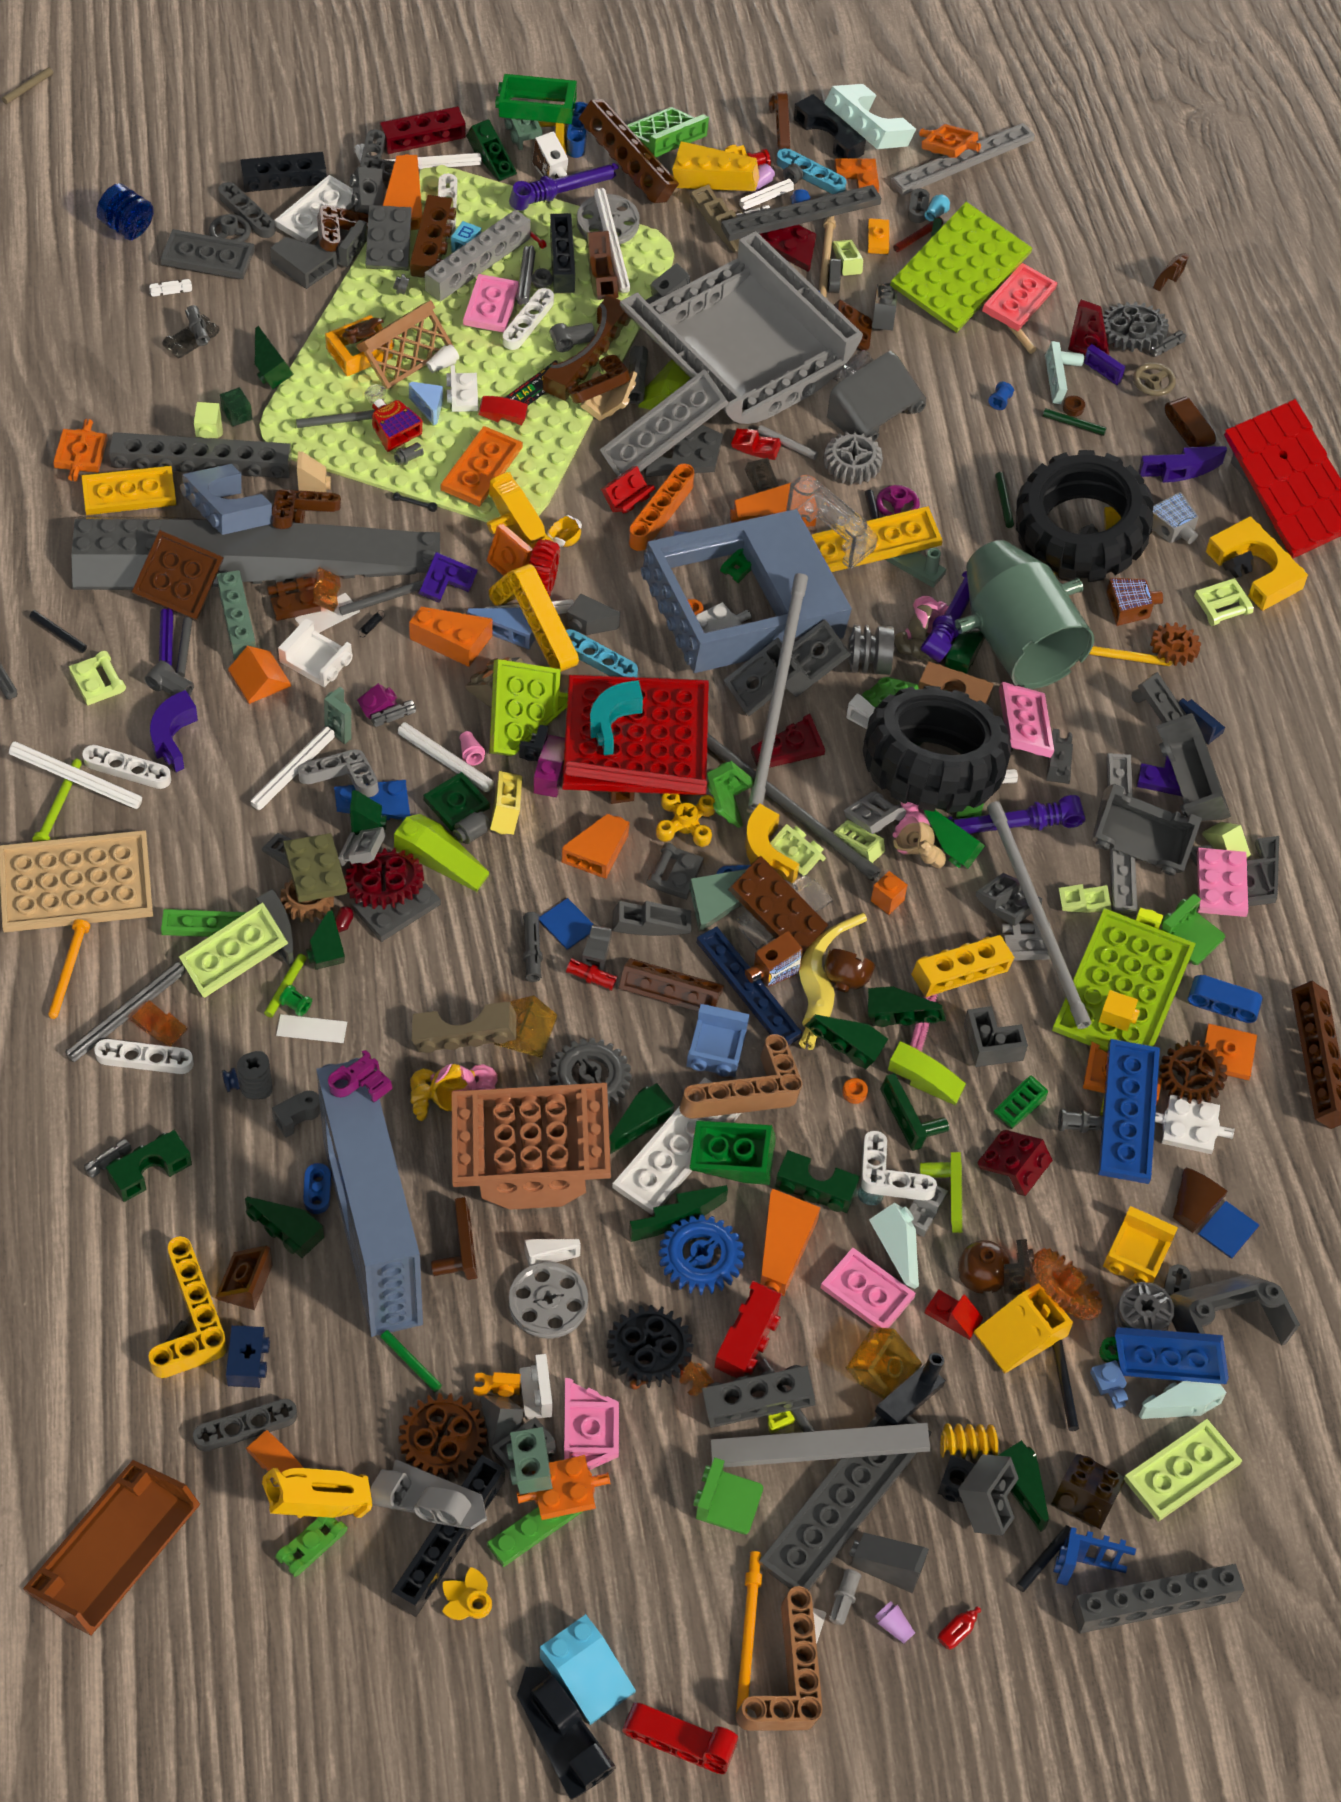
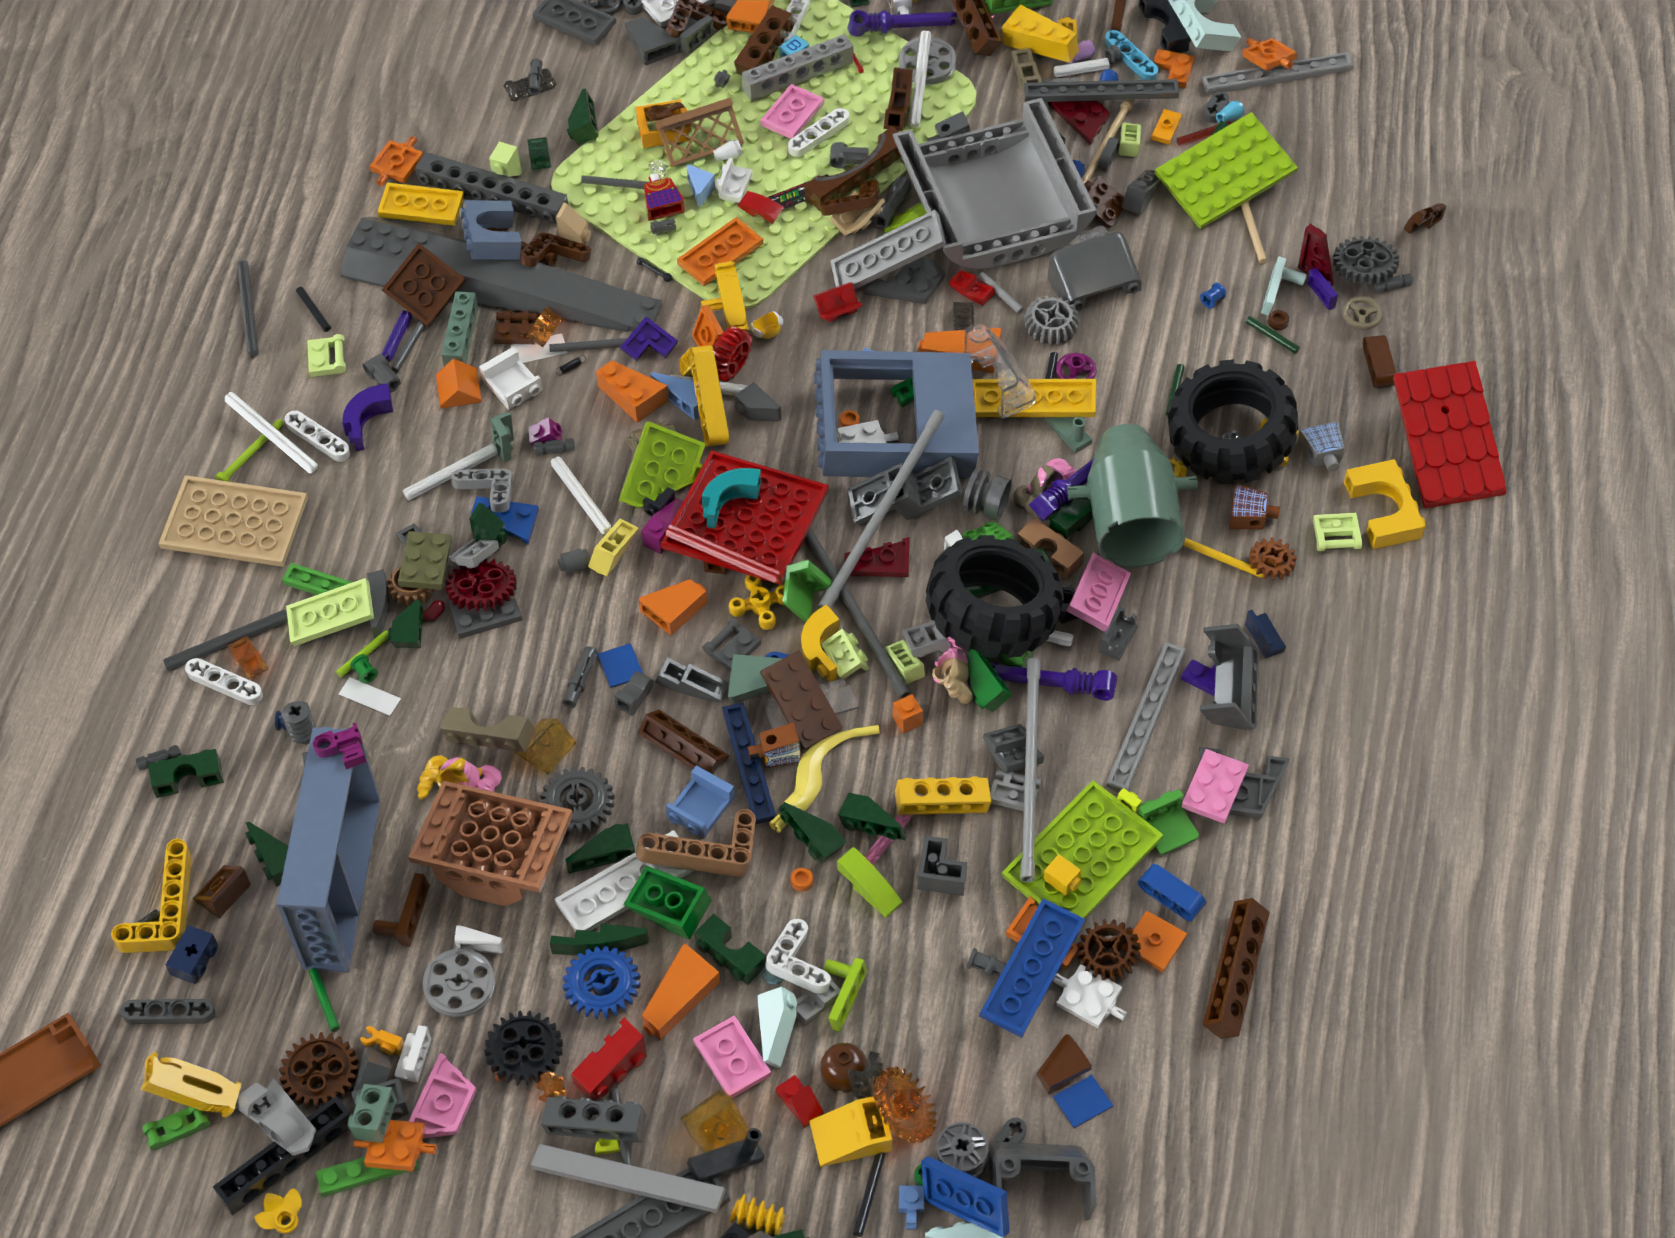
camera: 25 degrees right, 0 degrees up
(80, 928) = (220, 560): light orange bar -> none
(170, 287) = (531, 40): white axle -> none
(272, 1453) = (177, 1043): orange slope -> none
(388, 237) = (727, 35): dark grey plate -> none
(439, 851) = (539, 572): lime wedge -> none
(455, 800) = (571, 533): dark green plate -> none
(472, 751) = (604, 494): bright pink cone -> none
(525, 275) = (832, 93): dark grey axle -> none
(542, 278) = (846, 99): dark grey plate -> none
(562, 253) = (870, 81): black brick -> none
(591, 974) = (619, 714): red pin -> none
(601, 653) = (752, 439): medium azure beam -> none
(661, 507) = (863, 322): orange beam -> none
(727, 1499) = (529, 1198): bright green bracket -> none
(762, 157) = (1087, 34): red bush -> none
(847, 970) = (838, 772): reddish brown cylinder -> none
(906, 1117) = (836, 930): dark green piece -> none
(1017, 1156) = (916, 982): dark red bracket -> none
(1019, 297) = (1269, 209): coral plate -> none
(1032, 1090) = (940, 926): green slope -> none
(1083, 900) = (1088, 769): yellowish green slope -> none
(1140, 1246) = (991, 1093): yellow panel -> none
(1144, 830) = (1160, 719): dark grey windscreen -> none
(1159, 698) = (1233, 607): dark grey piece -> none
(1184, 466) = (1352, 399): dark purple slope -> none
(1227, 837) = (1241, 748): yellowish green slope -> none
(1241, 561) = (1370, 498): black tile -> none

